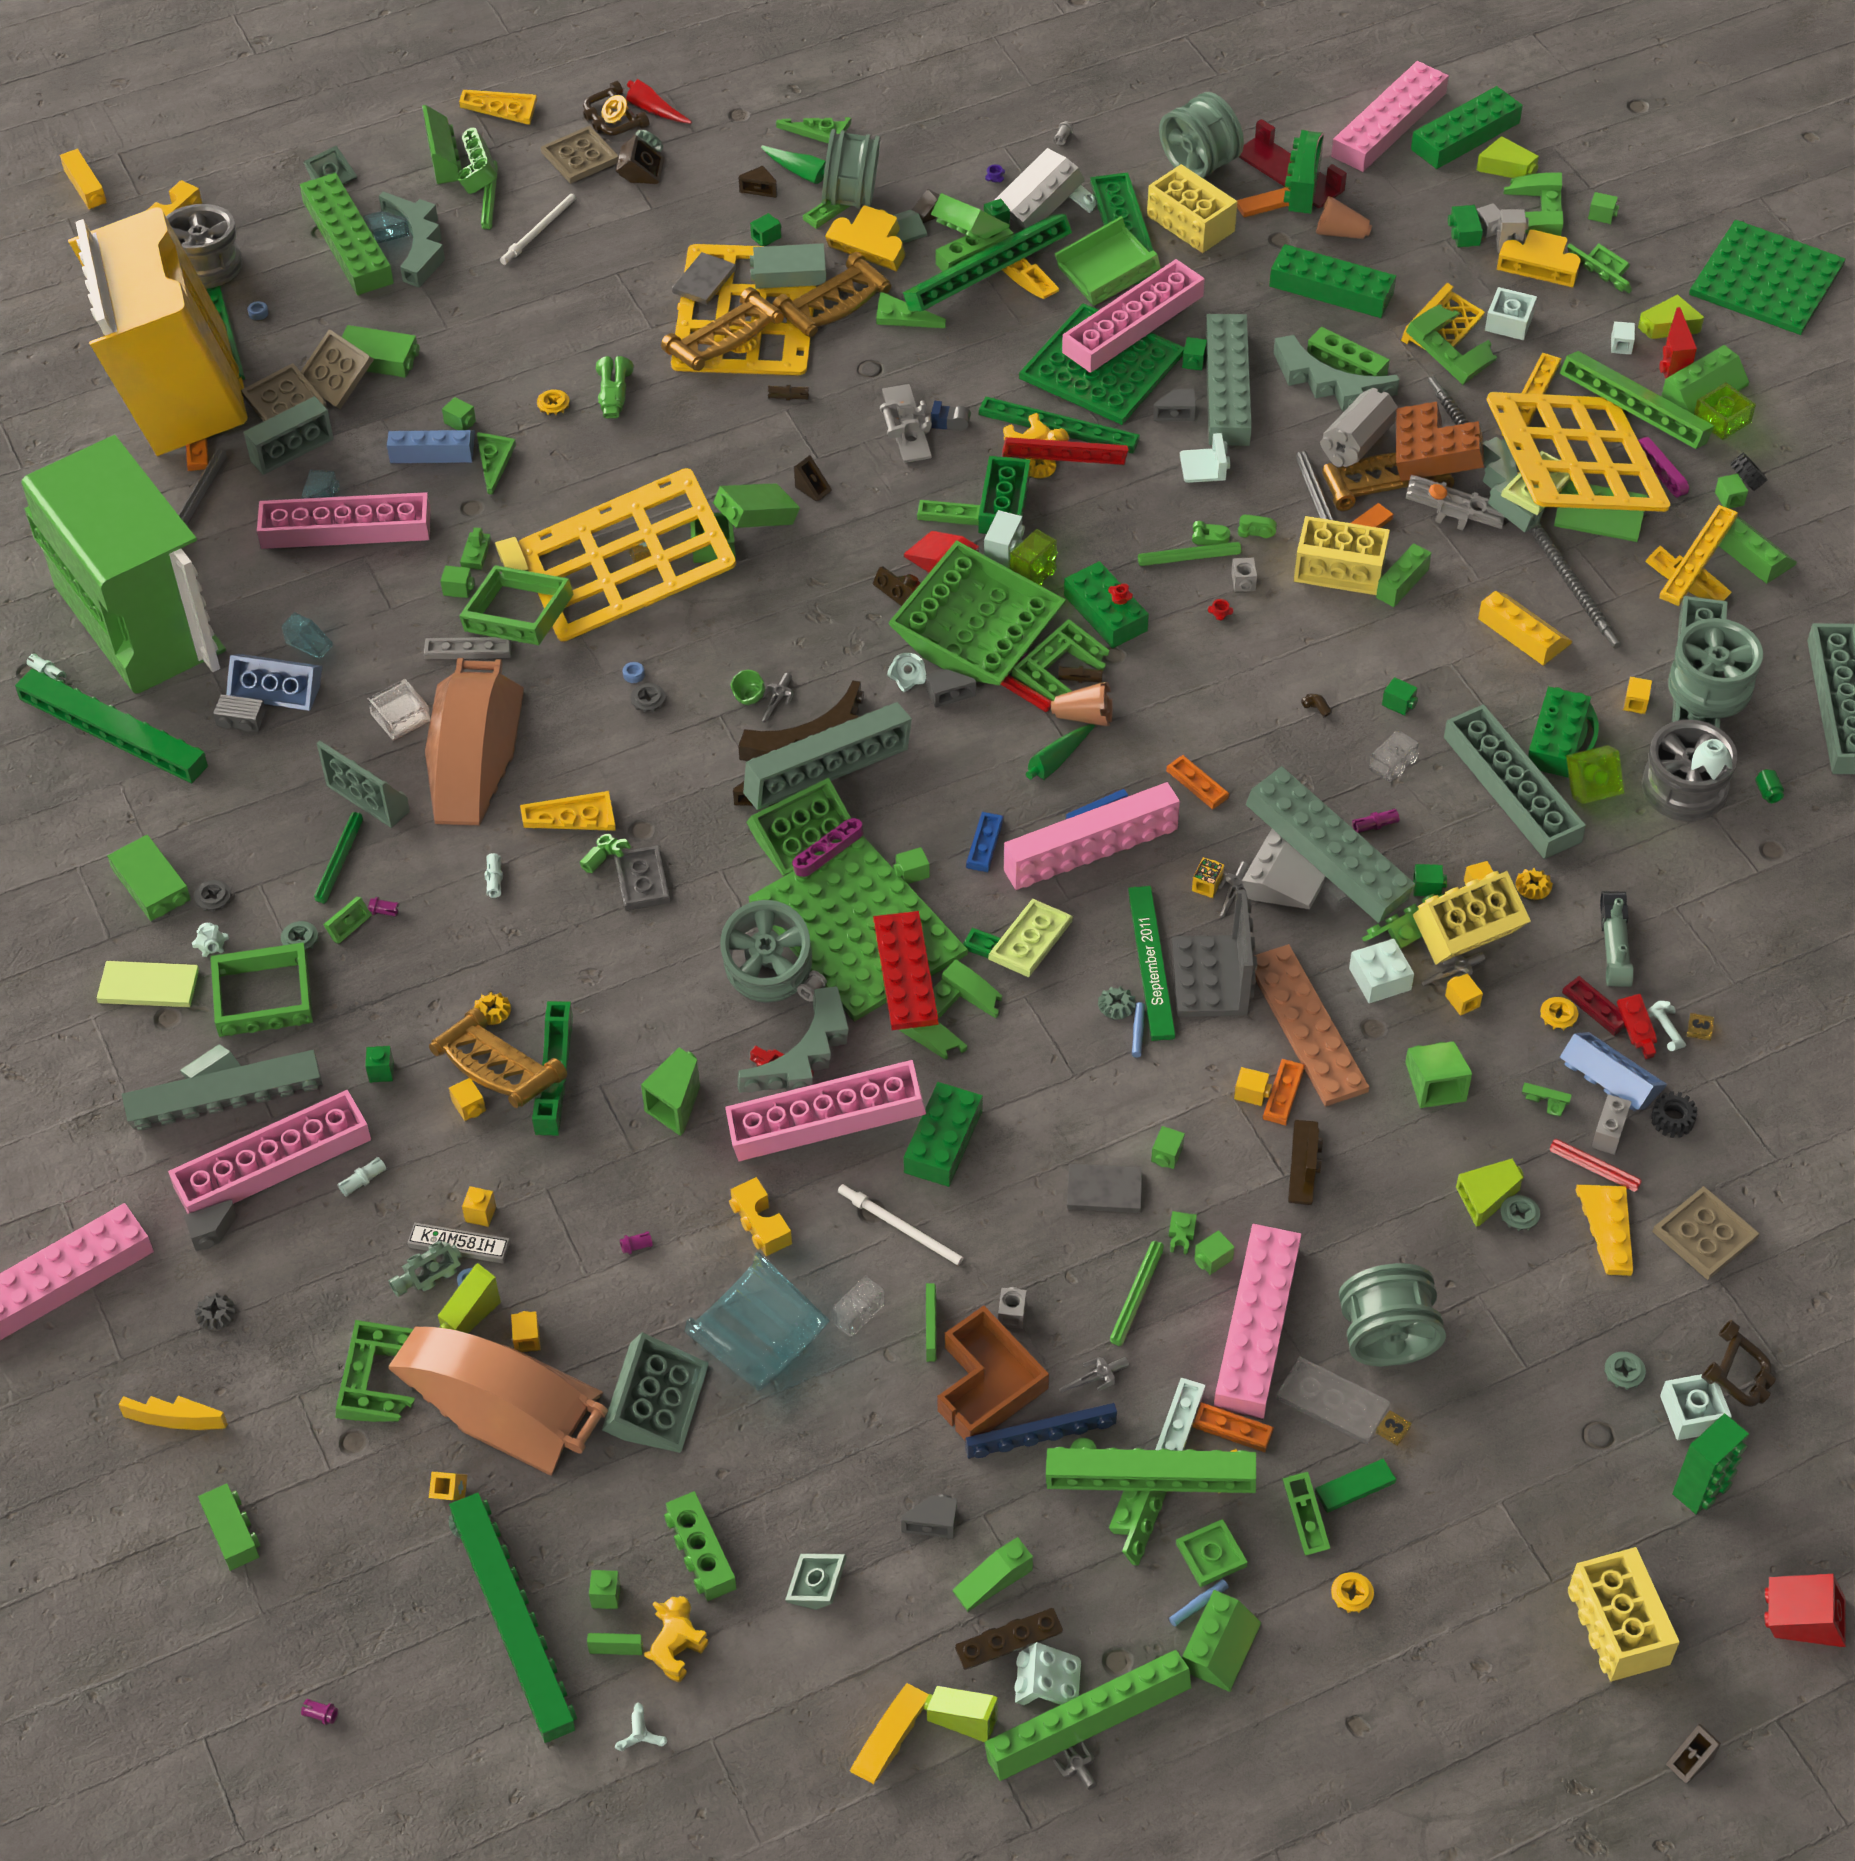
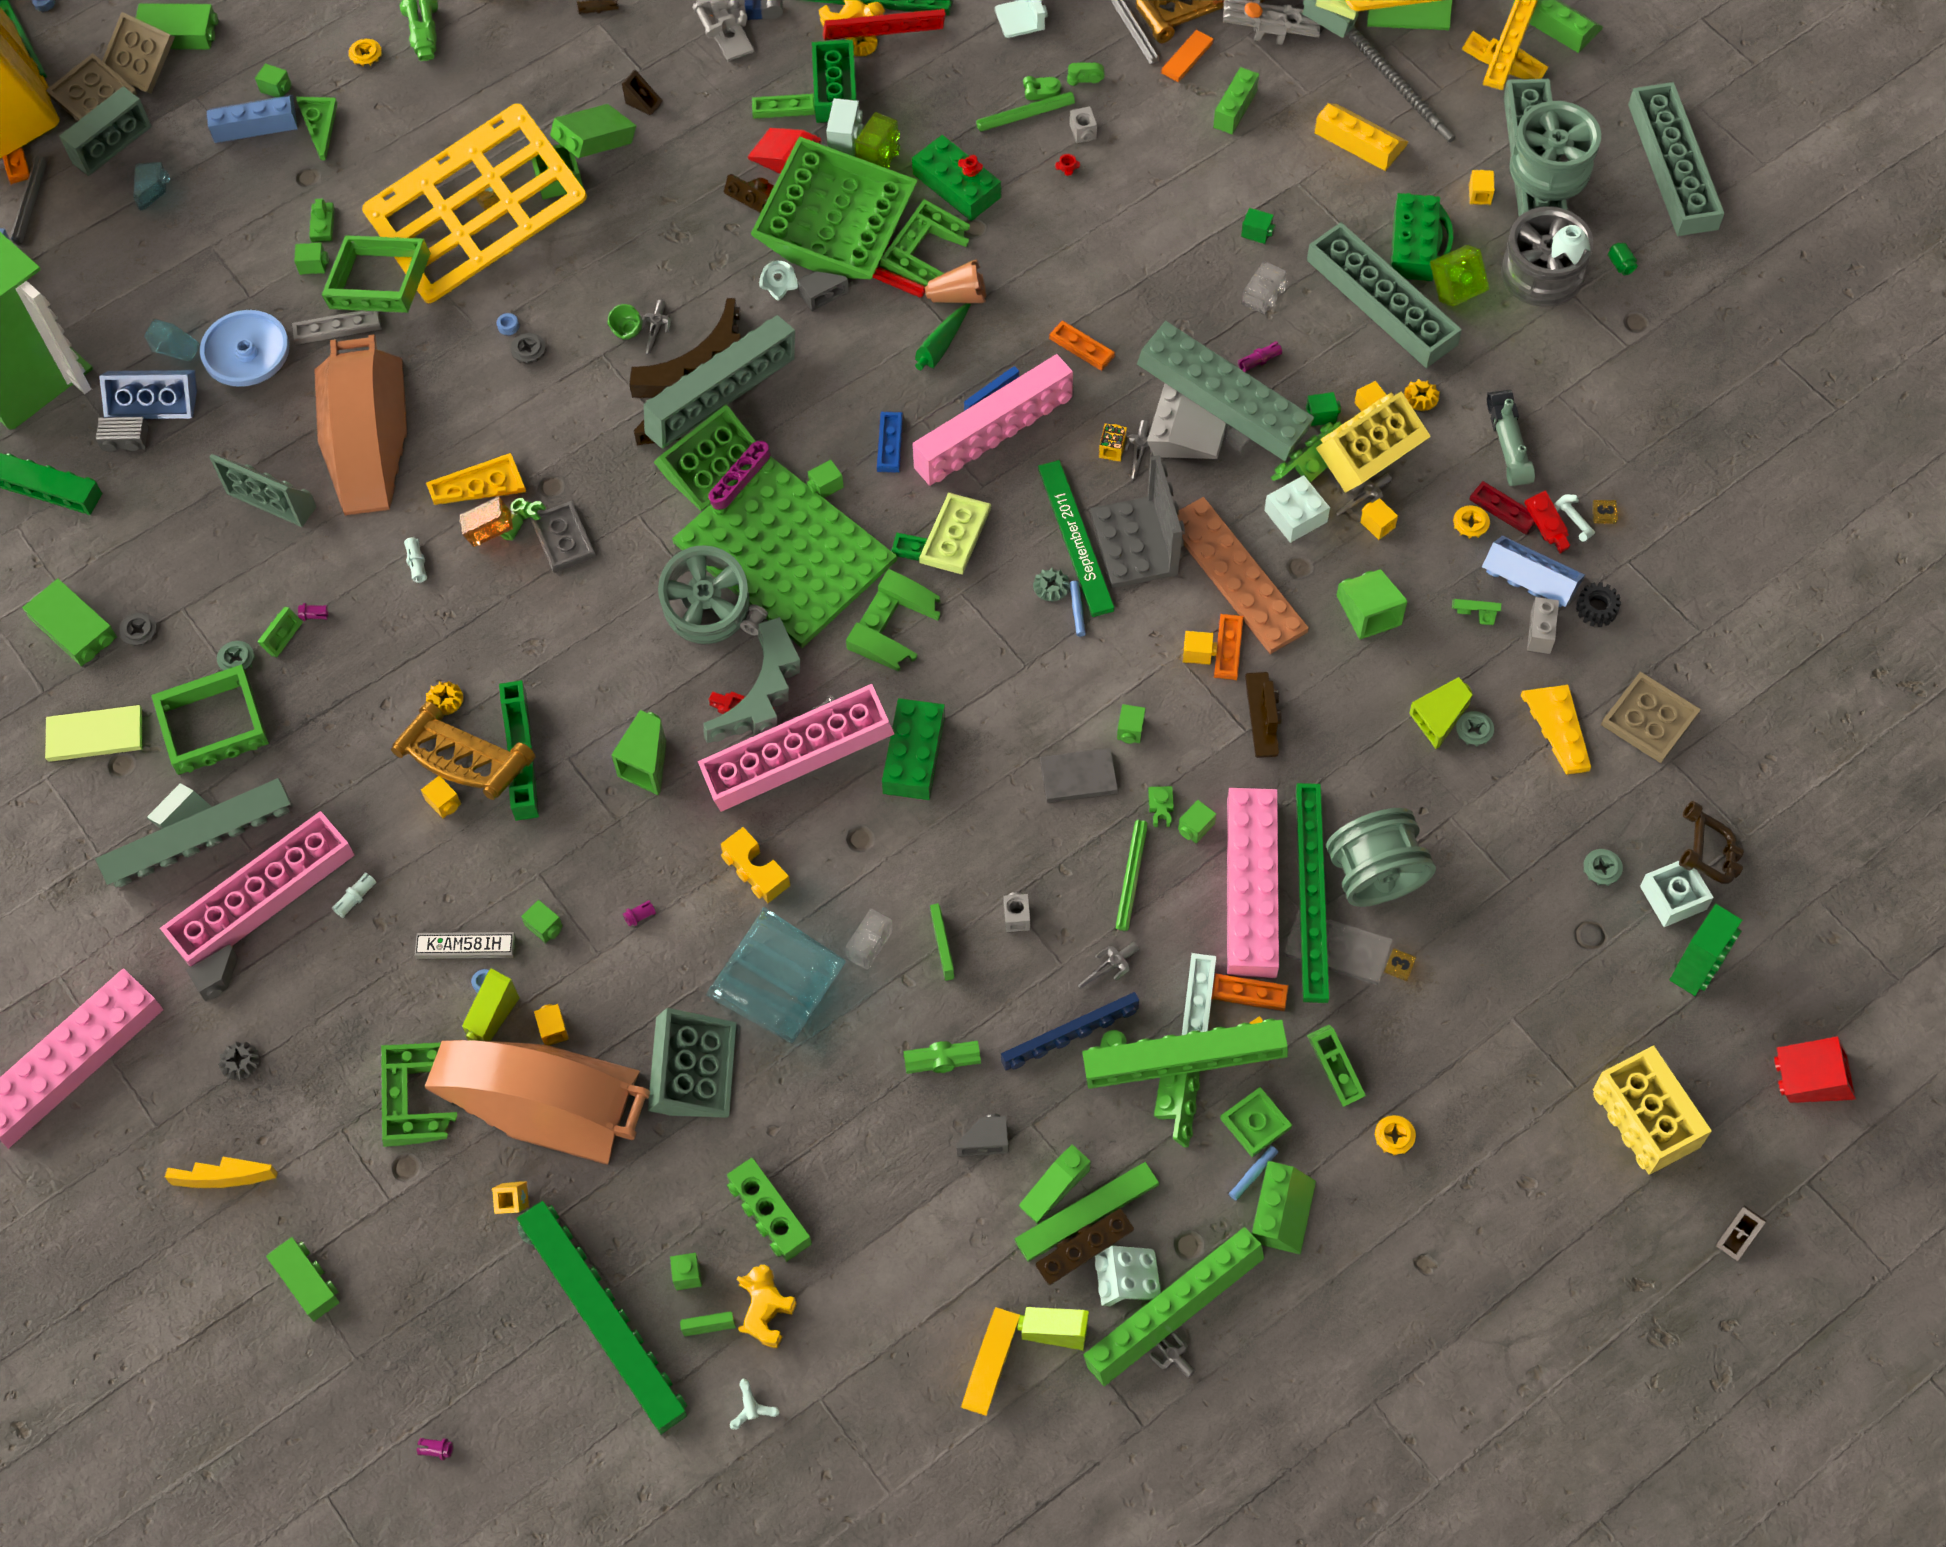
camera: 10 degrees left, 10 degrees up
(209, 939) = (146, 676): light aqua rock -> none
(338, 857) = (256, 568): green axle -> none
(343, 520) = (181, 212): bright pink brick -> none
(374, 653) = (244, 348): none -> light blue dish
(379, 1064) = (345, 776): green brick -> none
(399, 709) = (282, 402): clear piece -> none
(429, 1266) = (443, 978): sand green brick -> none
(479, 1206) = (477, 905): yellow brick -> none
(511, 554) = (359, 220): light yellow slope -> none
(539, 1233) = (542, 921): none -> bright green brick
(569, 850) = (486, 522): none -> clear orange brick
(816, 1580) = (887, 1221): sand green slope -> none
(861, 1201) = (849, 830): white bar -> none
(905, 970) = (842, 589): red plate -> none
(906, 1432) = (942, 1057): none -> bright green piece
(997, 1614) = (1086, 1211): none -> bright green tile
(999, 1379) = (1021, 986): dark orange piece -> none
(1080, 674) = (946, 253): dark brown pin -> none
(1316, 701) = (1179, 243): dark brown arm -> none
(1316, 1342) = (1312, 893): none -> green plate
(1341, 555) = (1173, 90): light yellow brick -> none
(1355, 1485) = (1376, 1028): green tile -> none
(1595, 1165) = (1535, 668): axle -> none

